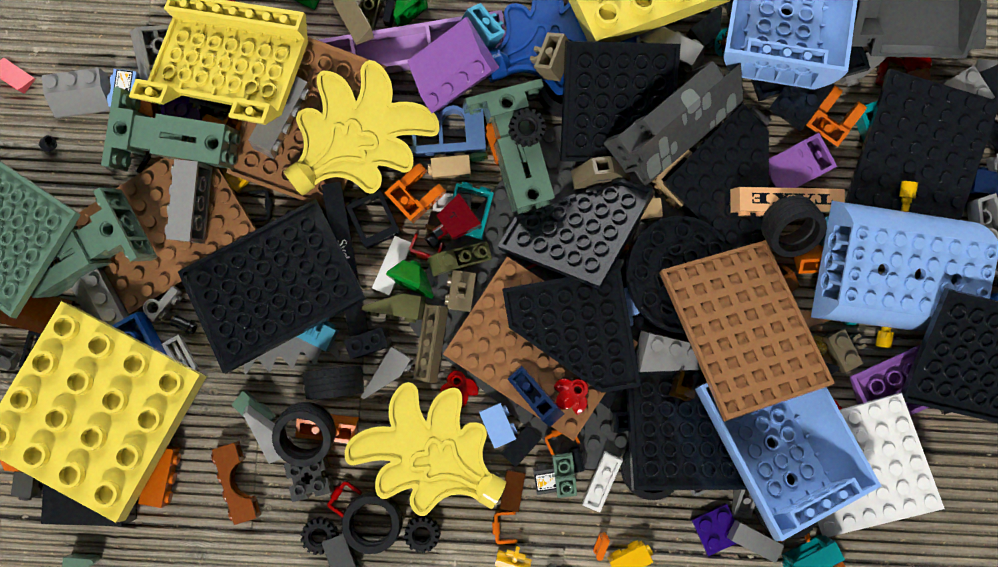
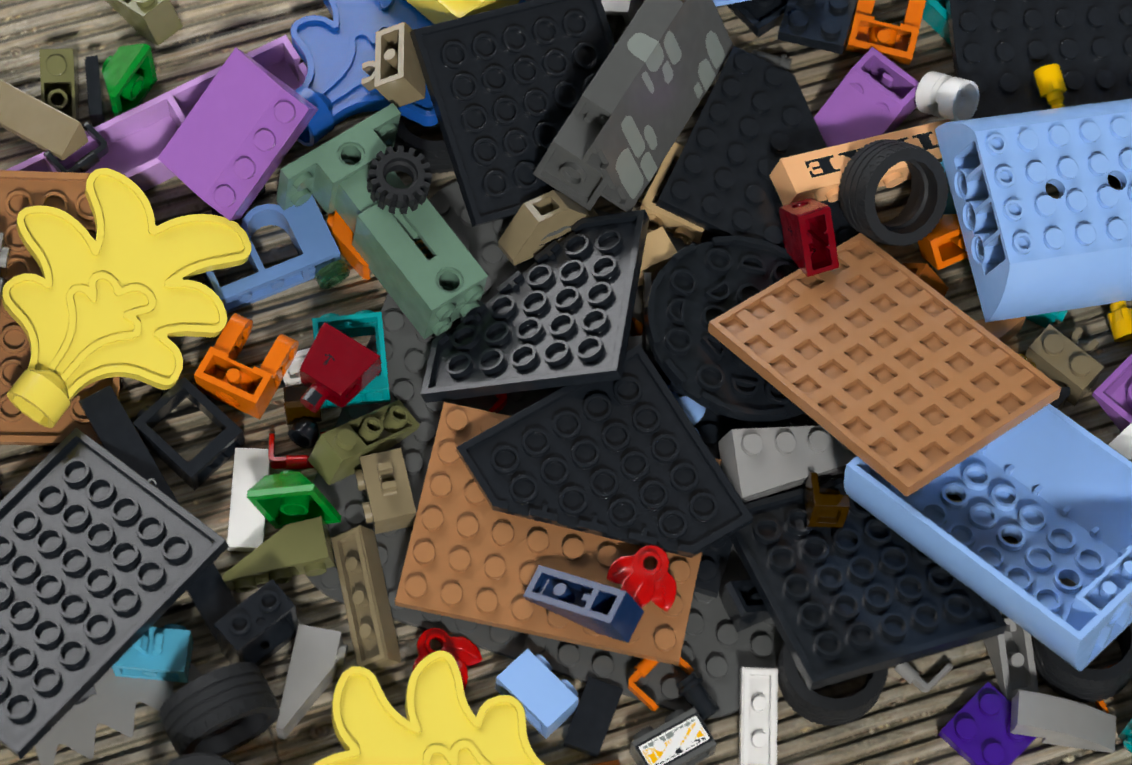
camera: 25 degrees left, 20 degrees down
(369, 49) = (86, 161): none -> black piece
(450, 167) = (290, 305): tan brick -> none
(485, 25) = (272, 55): medium azure brick -> none
(564, 475) = (687, 724): sand green slope -> none
(736, 231) = (807, 228): none -> dark red torso
(847, 178) = (947, 96): none -> white wheel

